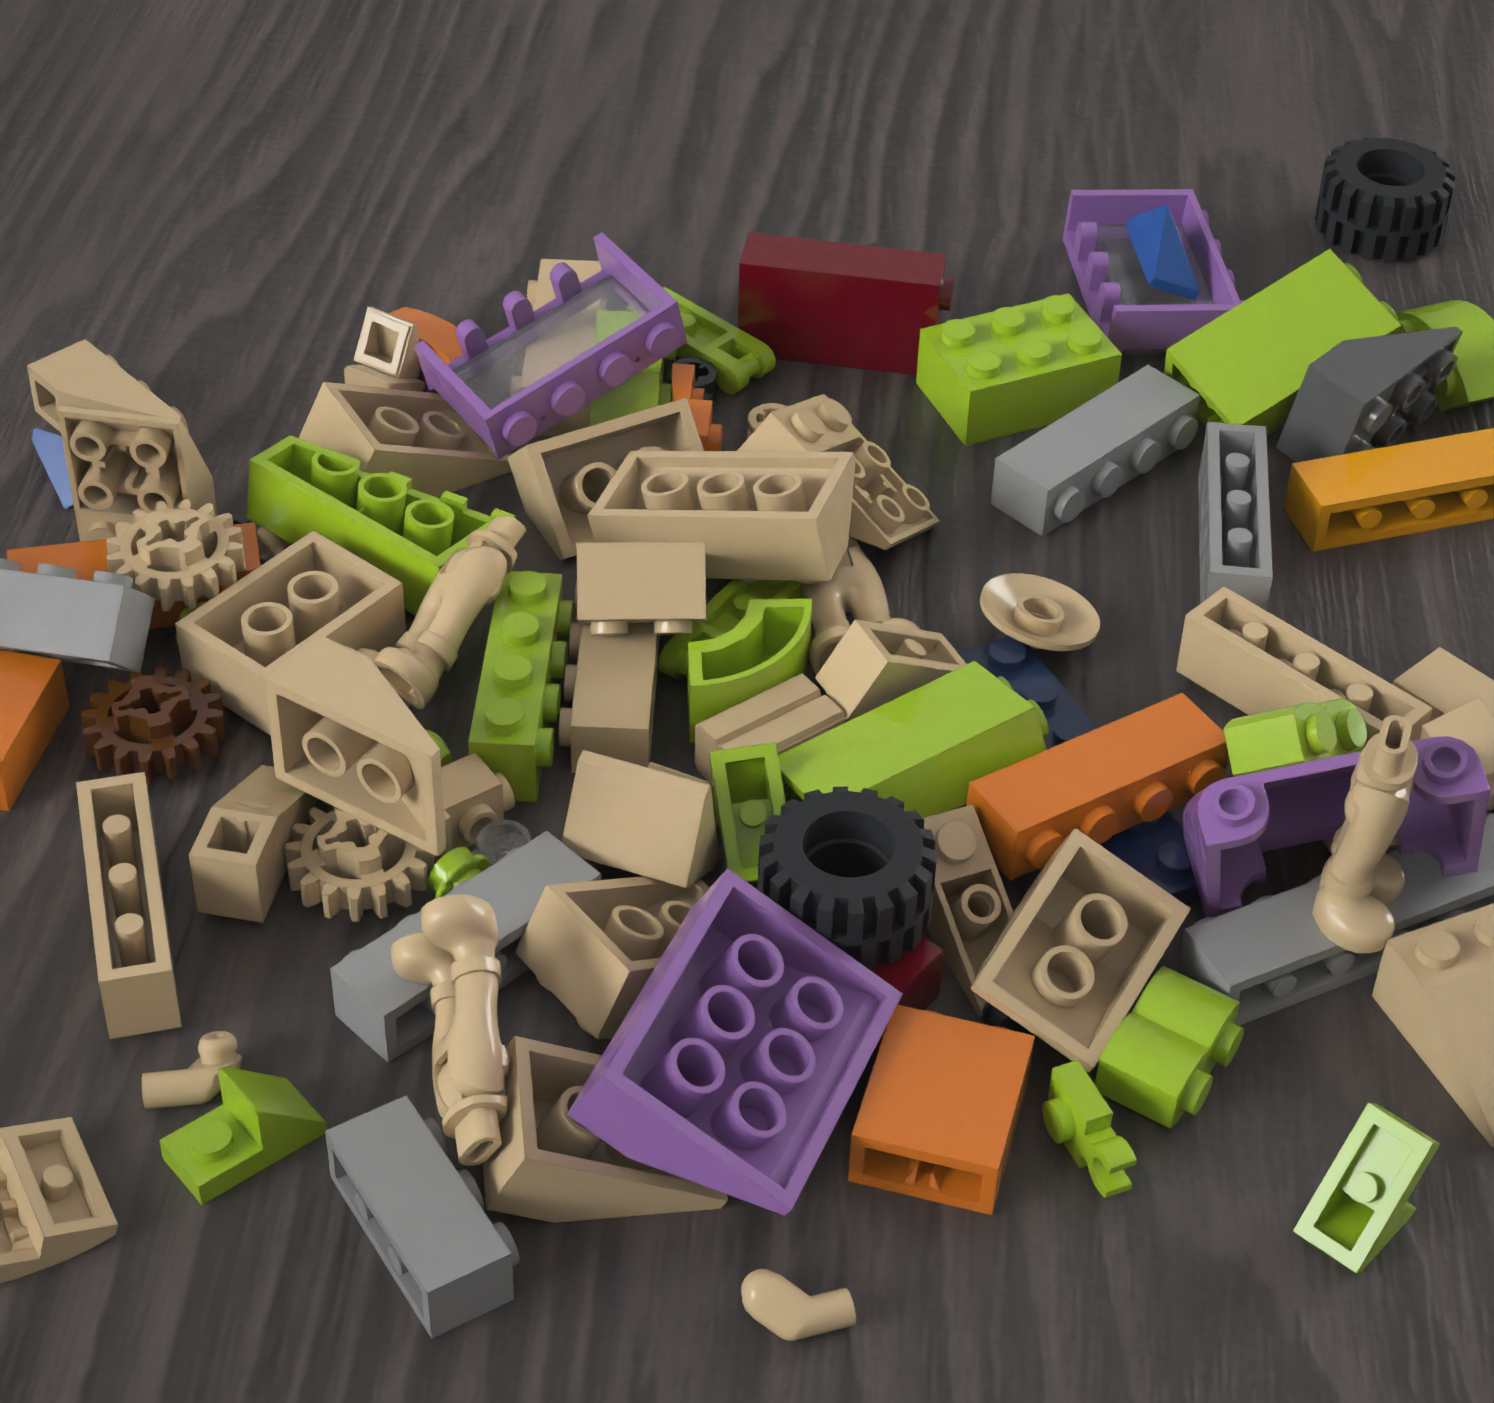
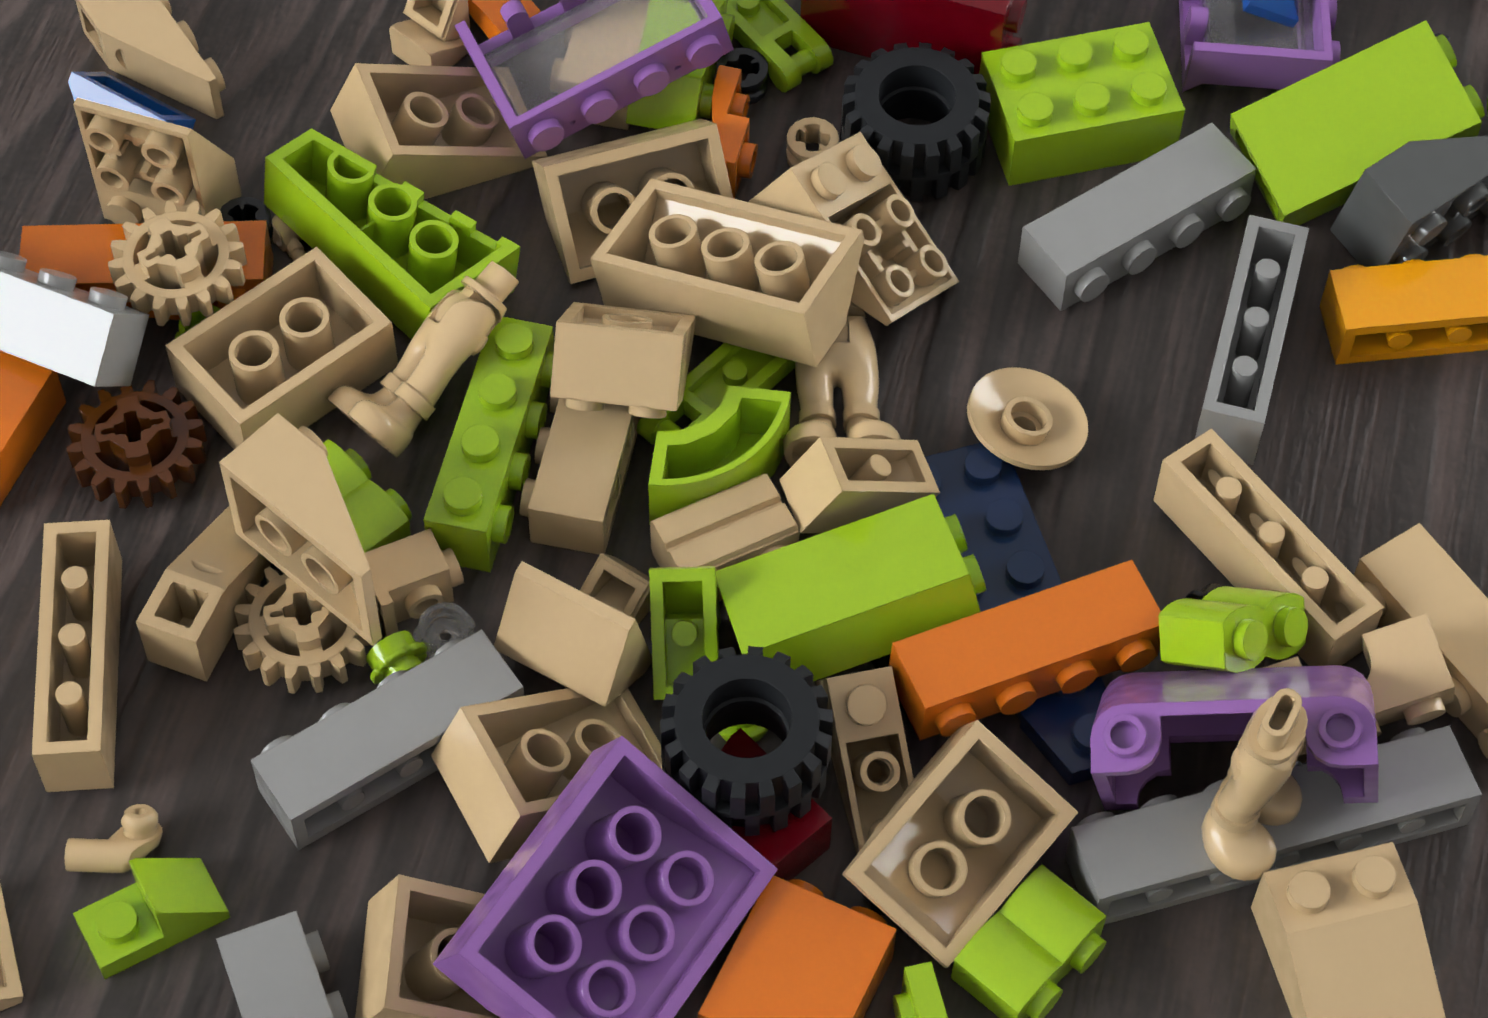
camera: 10 degrees right, 15 degrees up
(467, 1050) = (353, 893): tan piece -> none
(882, 382) = (924, 87): none -> black tyre

